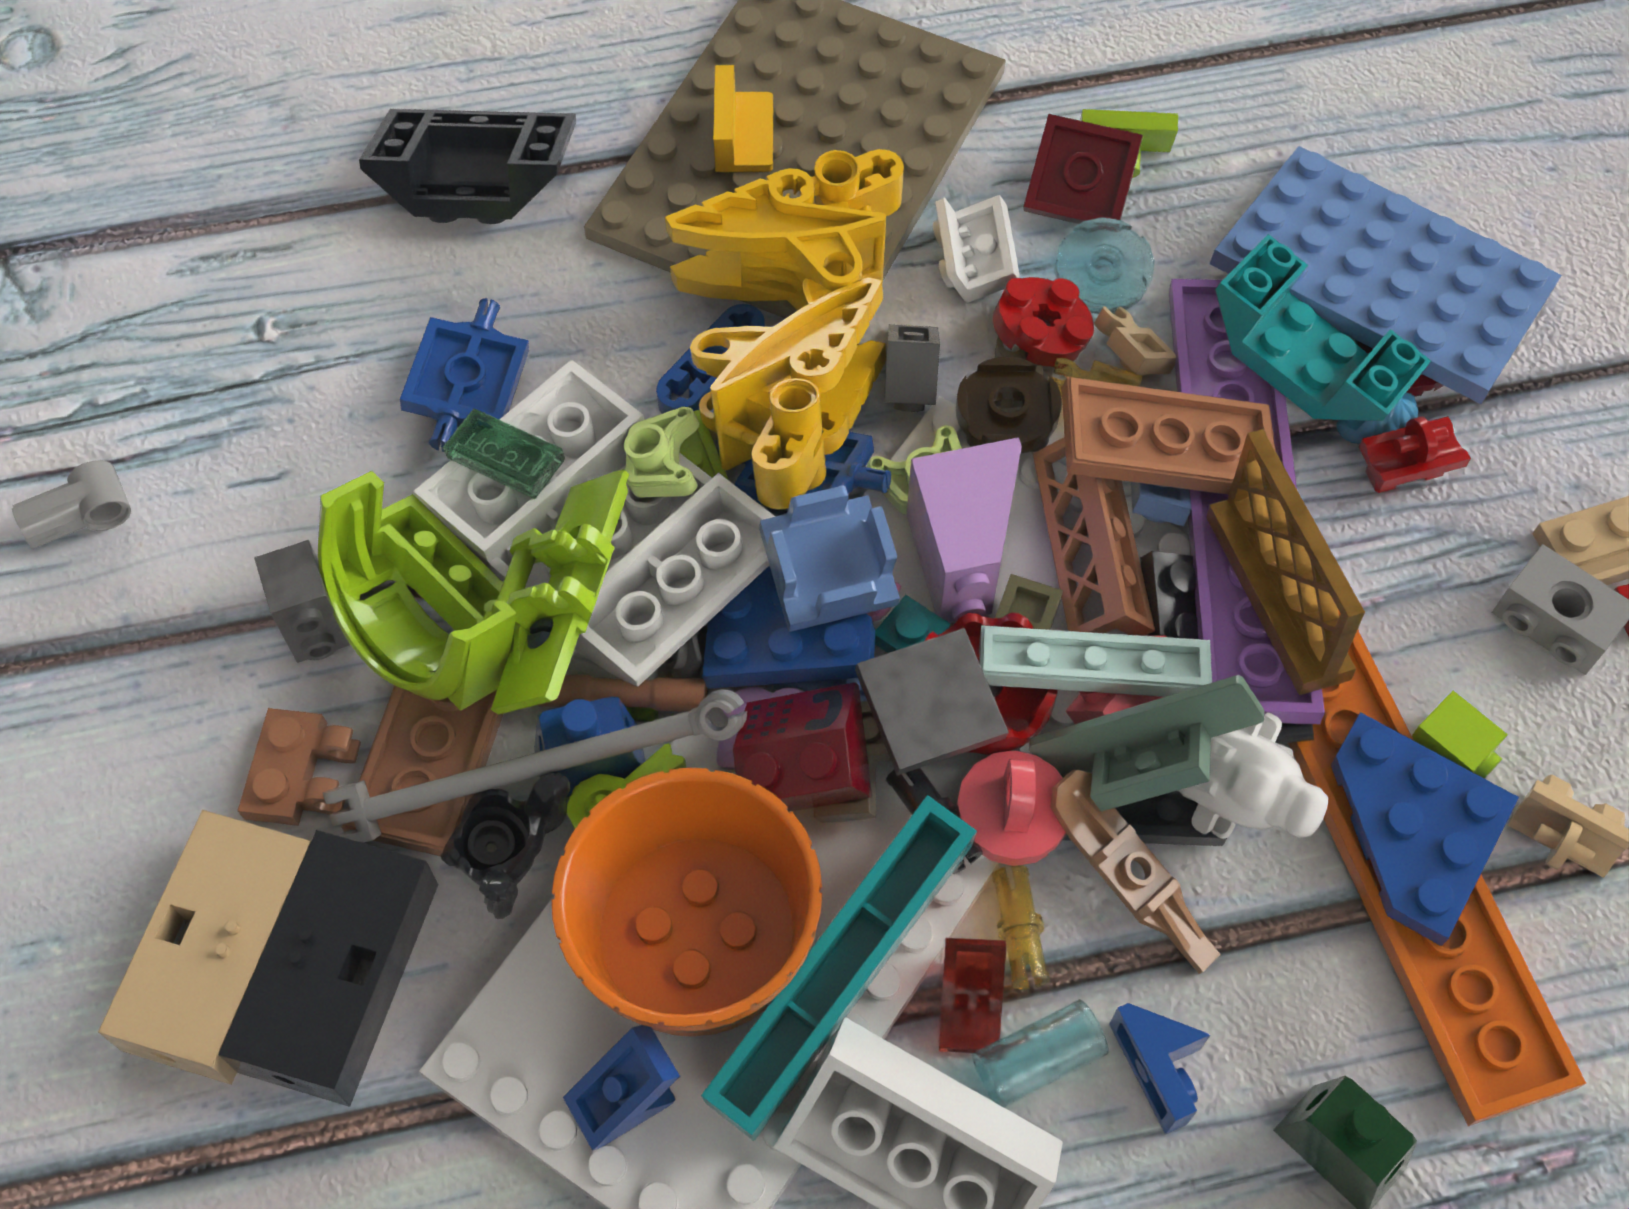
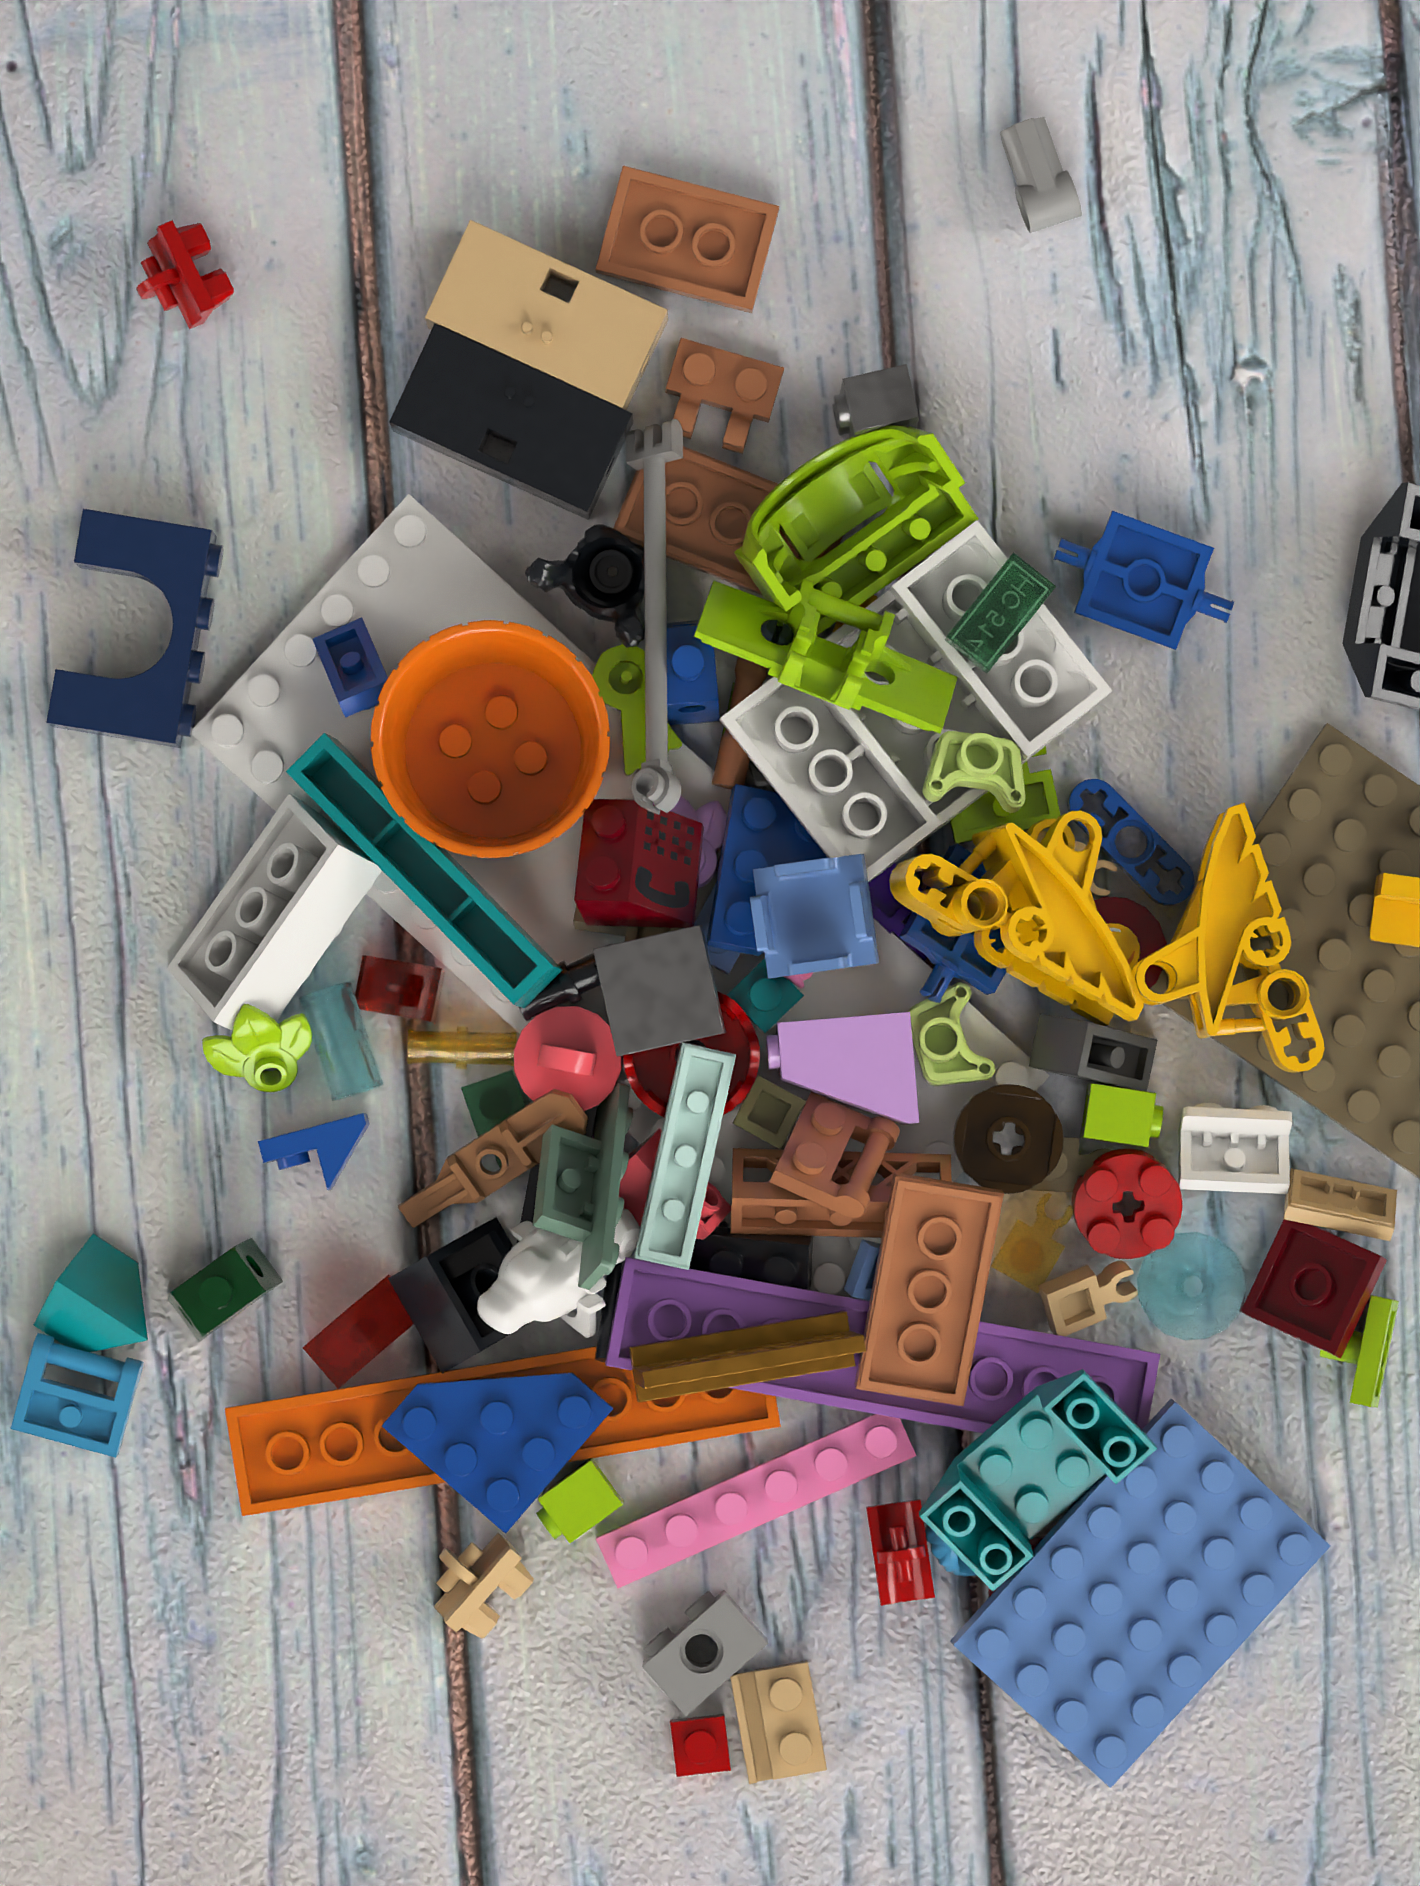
camera: 95 degrees right, 25 degrees up
(129, 818) = (687, 239): none -> nougat plate
(964, 334) = (1120, 1115): none -> lime brick
(1008, 164) = (1340, 1204): none -> tan plate
(1061, 552) = (818, 1147): none -> nougat plate
(1069, 1135) = (260, 1044): none -> lime plate
(1072, 884) = (493, 1101): none -> clear green plate
(1280, 885) = (444, 1293): none -> black slope
(1350, 985) = (359, 1333): none -> clear red slope
(1406, 599) = (754, 1497): none -> bright pink plate

